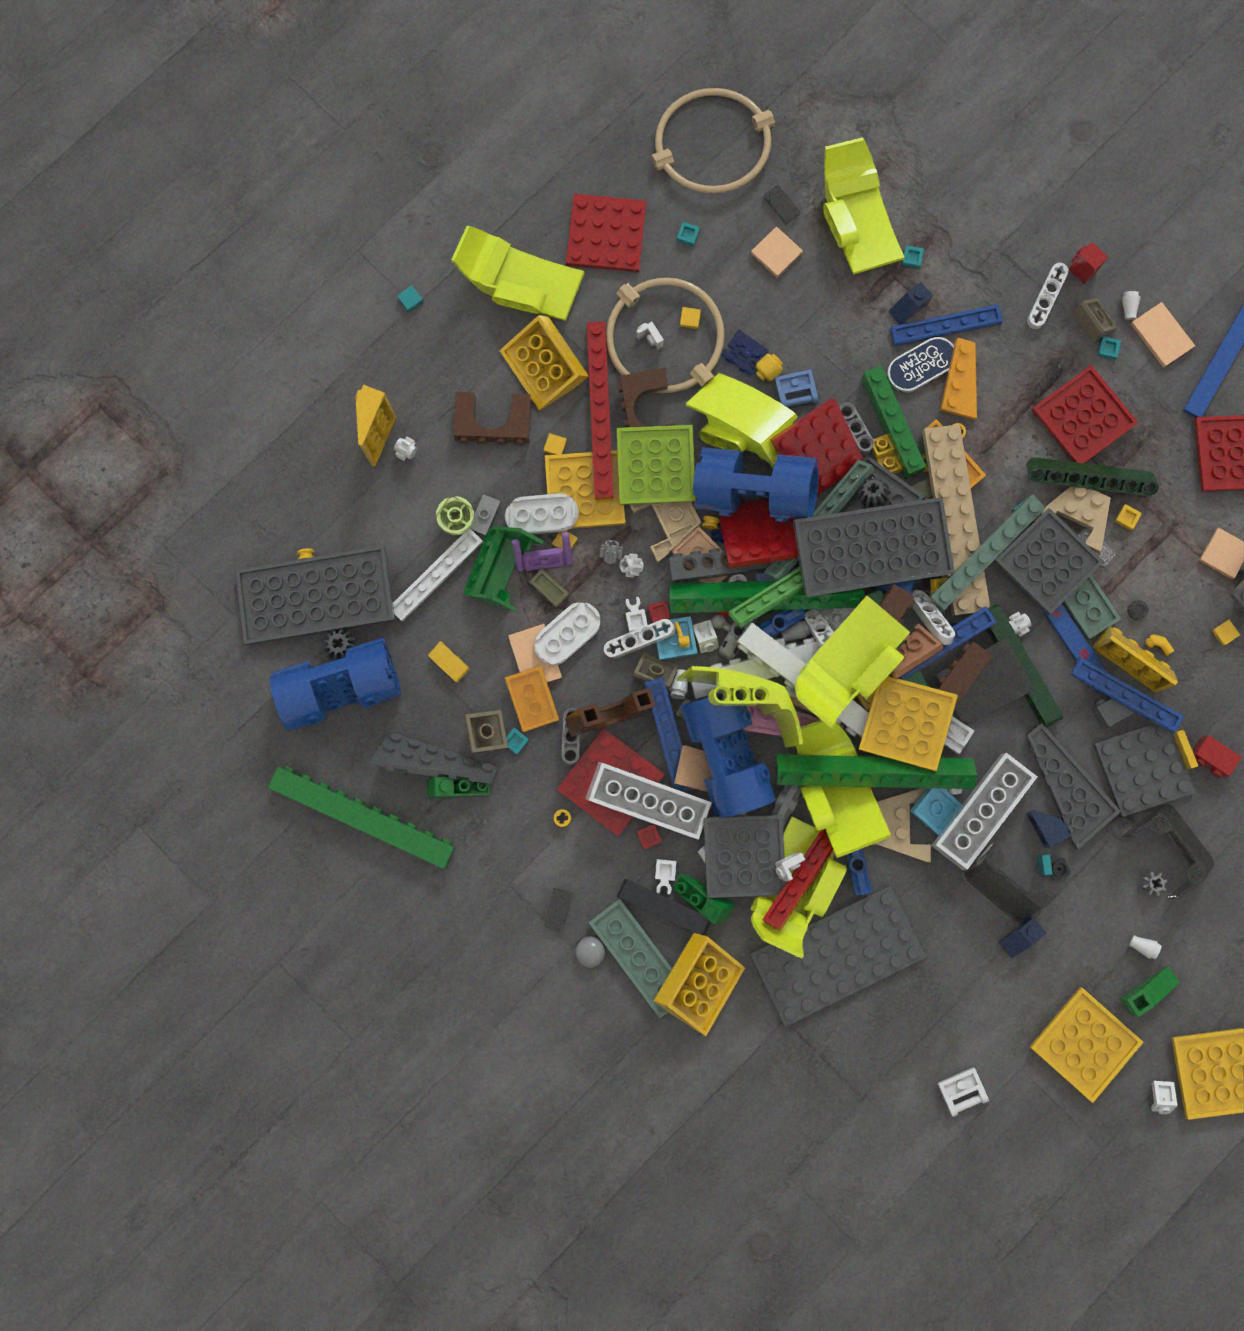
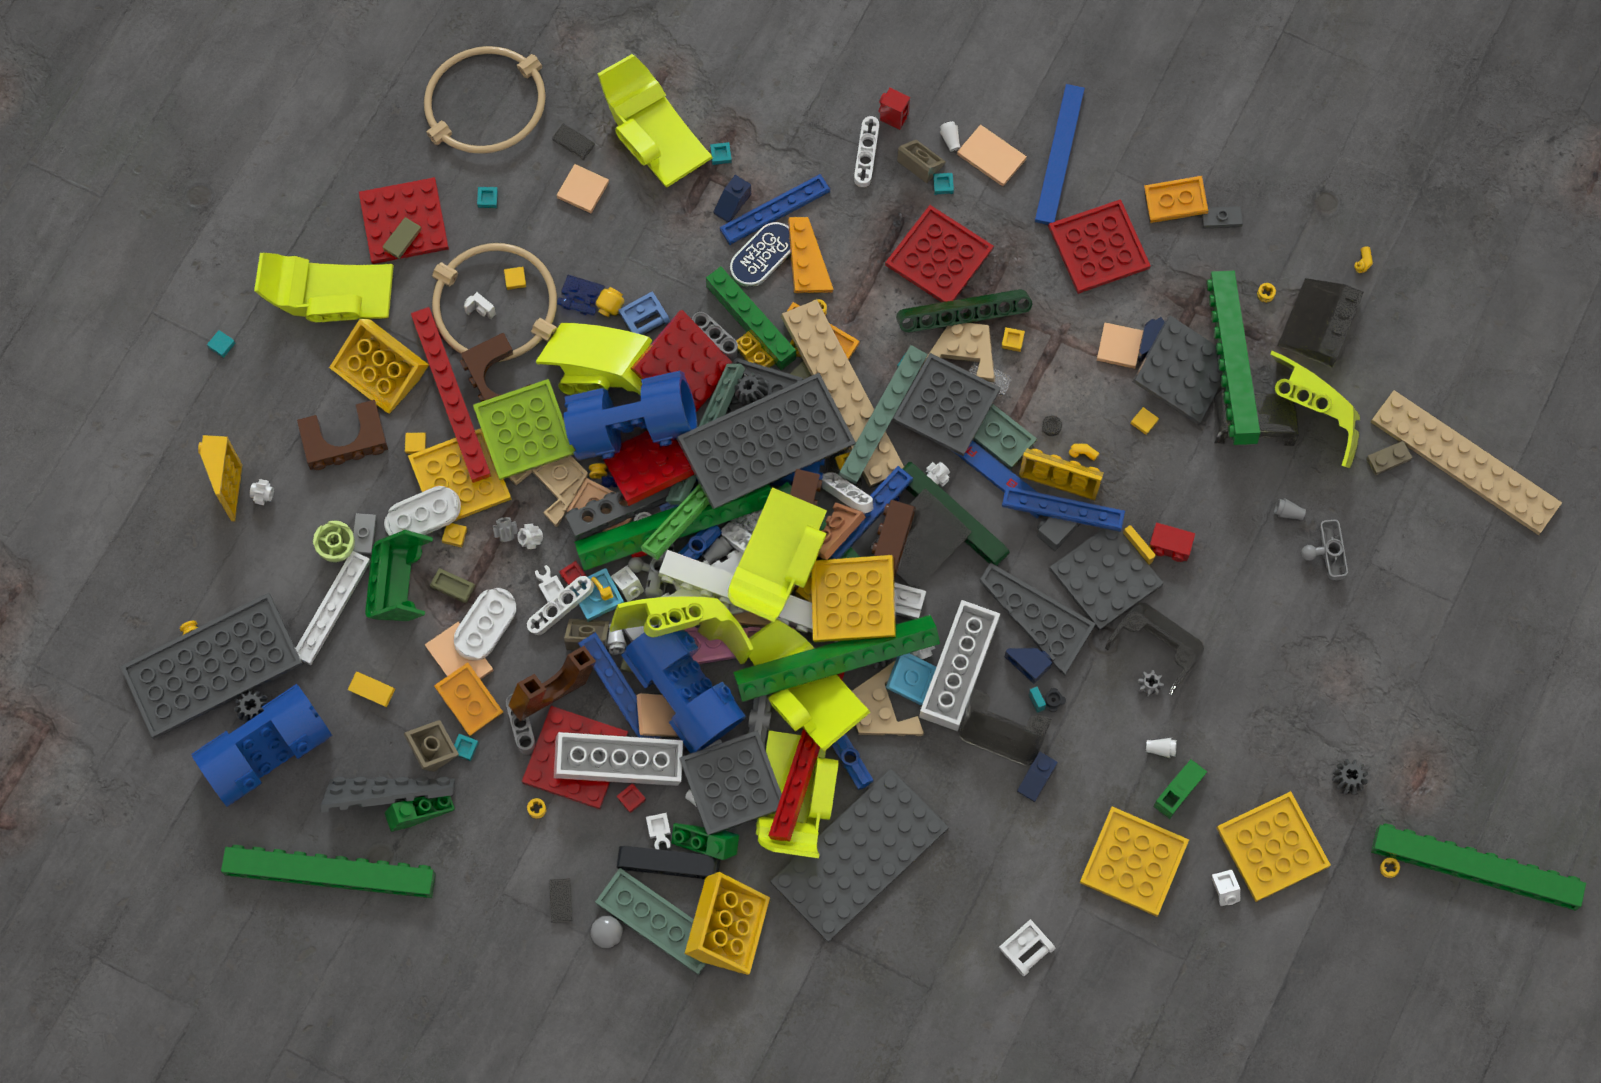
camera: 20 degrees left, 10 degrees down
(543, 558) = (437, 557): medium lavender plate -> none
(599, 249) = (402, 238): none -> olive tile
(791, 862) = (775, 777): white bracket -> none

